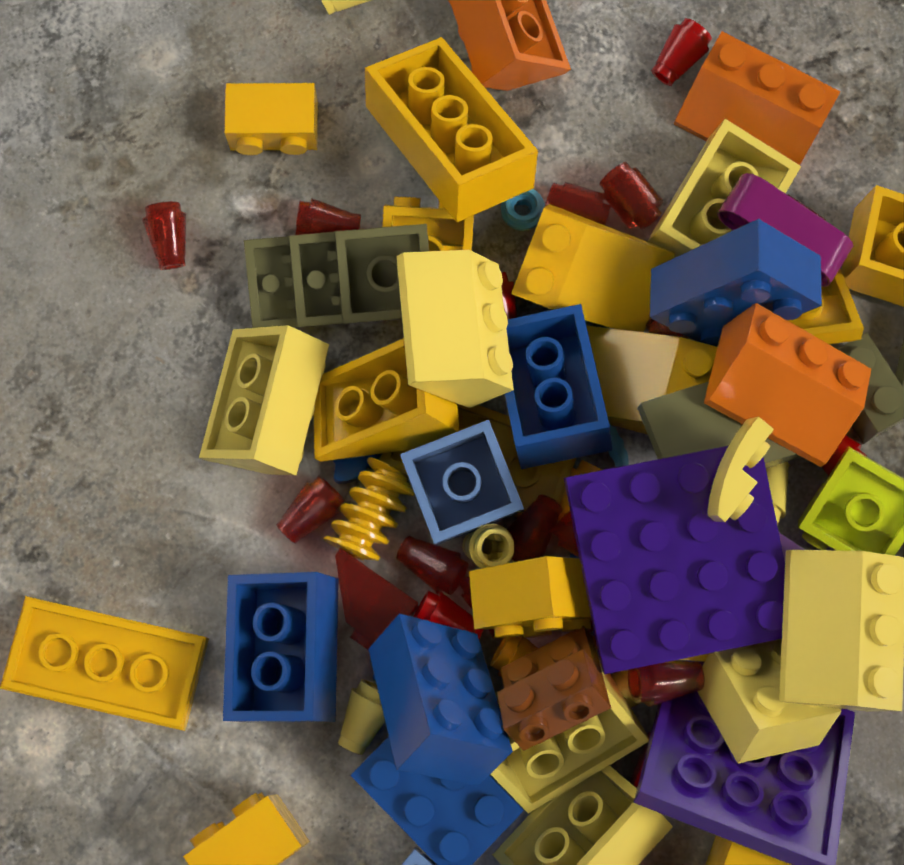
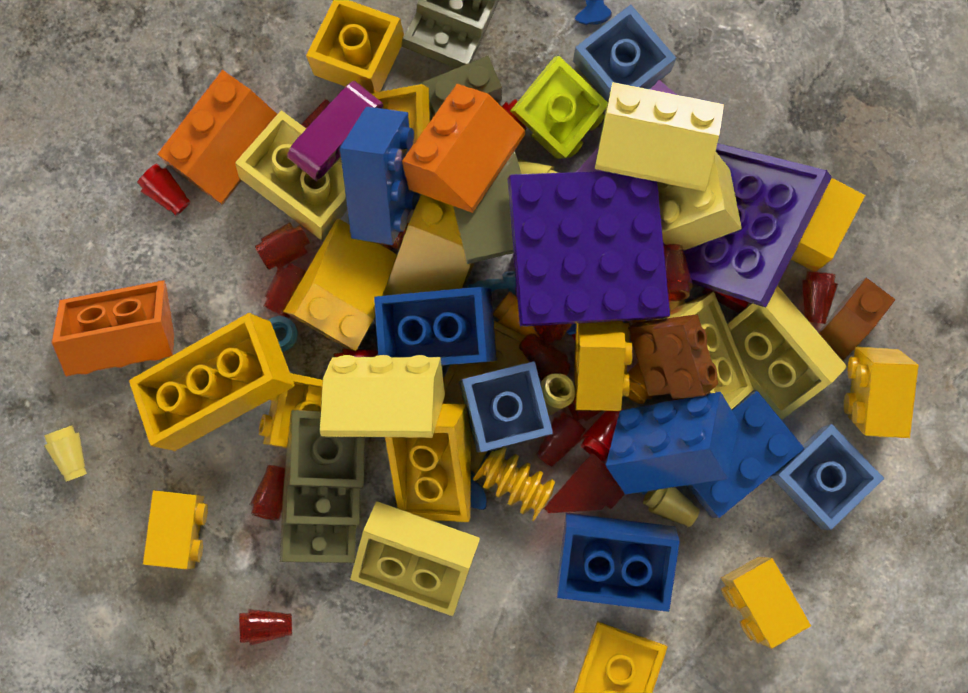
camera: 80 degrees left, 5 degrees up
(310, 509) = (506, 529): clear red cone -> none
(732, 484) = (550, 201): light yellow slope -> none

